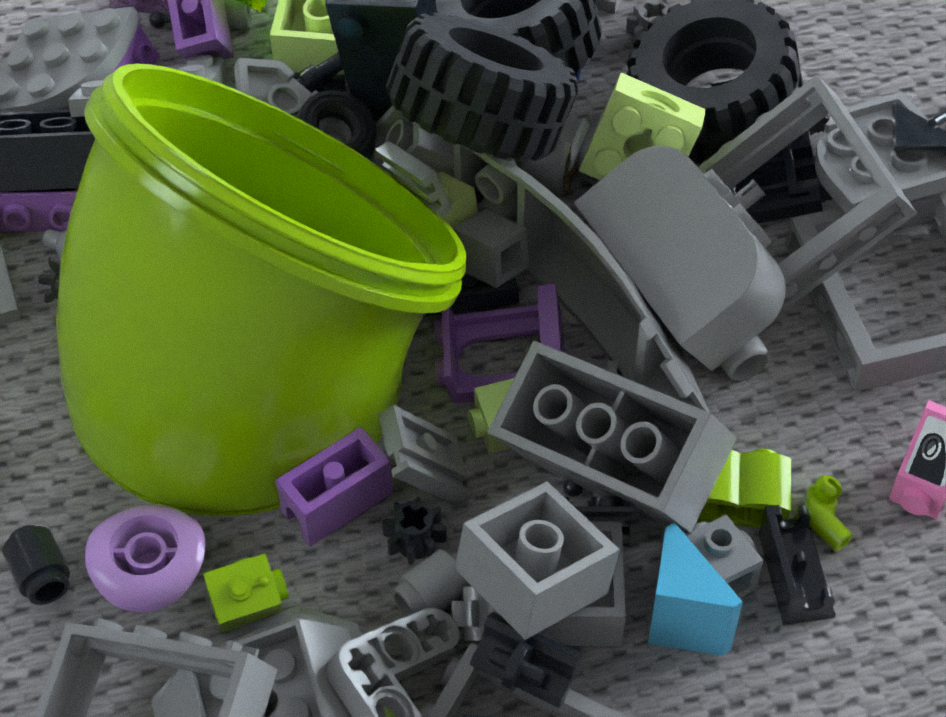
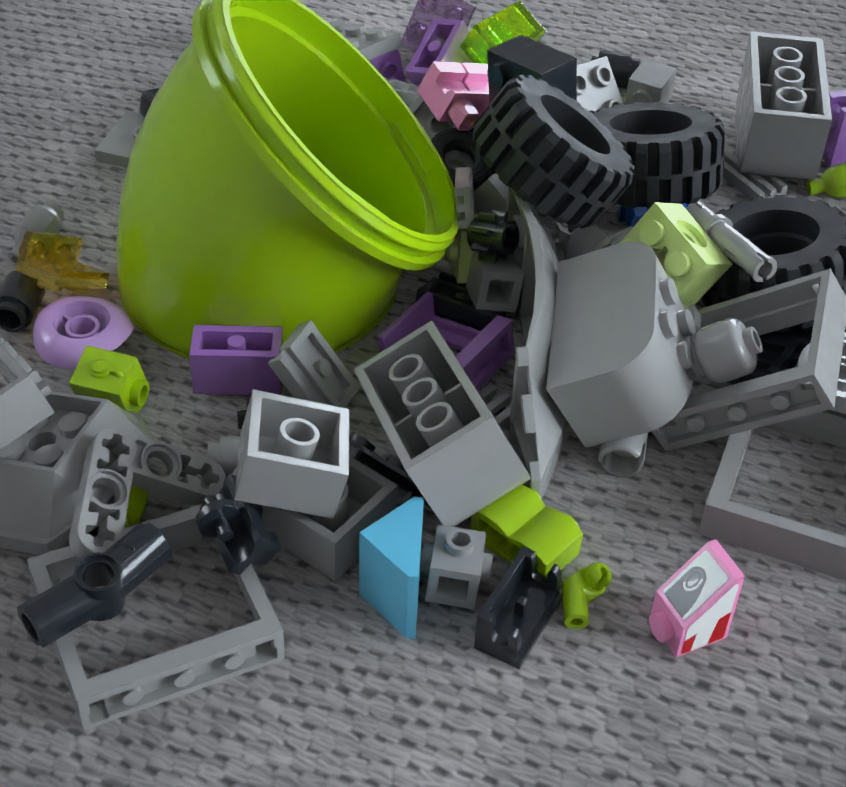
camera: 35 degrees right, 10 degrees down
(51, 504) = (54, 263): none -> clear yellow bracket
(294, 57) = (456, 92): none -> bright pink hips
(477, 206) = (493, 235): none -> black gear
(692, 87) = (733, 243): none -> light grey pin
(787, 208) = (725, 350): none -> light grey head

